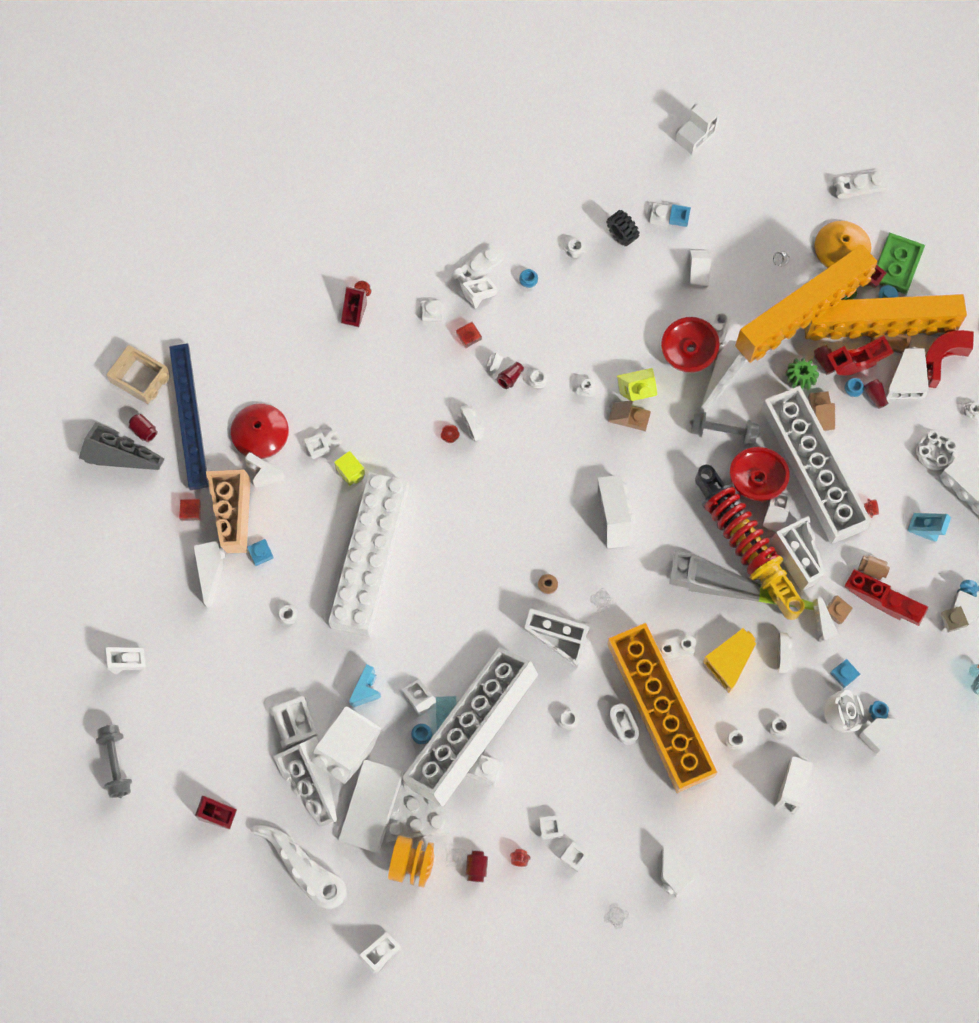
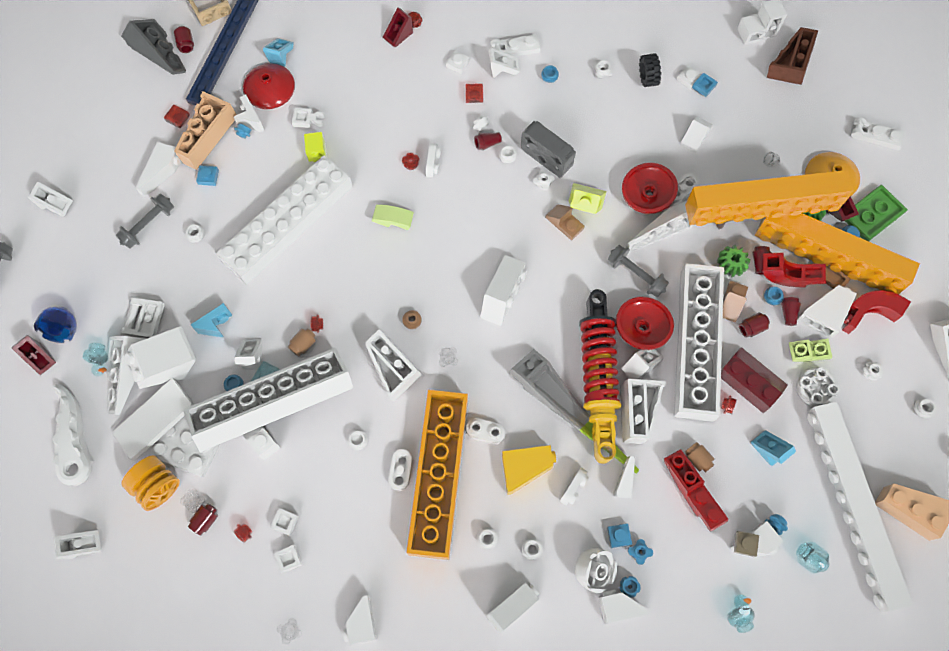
camera: 30 degrees right, 0 degrees up
(217, 772) = (56, 324): none -> clear blue cylinder
(237, 603) = (127, 237): none -> dark grey piece
(249, 390) = (277, 51): none -> medium azure slope
(266, 490) = (242, 130): none -> dark azure plate
(276, 780) = (98, 356): none -> clear light blue animal
(460, 660) = (302, 342): none -> medium nougat brick
(462, 636) = (316, 323): none -> clear red plate
(467, 496) = (392, 215): none -> yellowish green slope
(575, 355) = (547, 148): none -> dark grey axle
(748, 147) = (794, 58): none -> copper wedge
(838, 609) = (646, 476): medium nougat plate -> none
(853, 423) = (754, 325): none -> dark red brick
(865, 679) = (646, 552): none -> dark azure plate
(879, 474) = (753, 380): none -> dark red slope
(912, 421) = (810, 350): none -> yellowish green slope

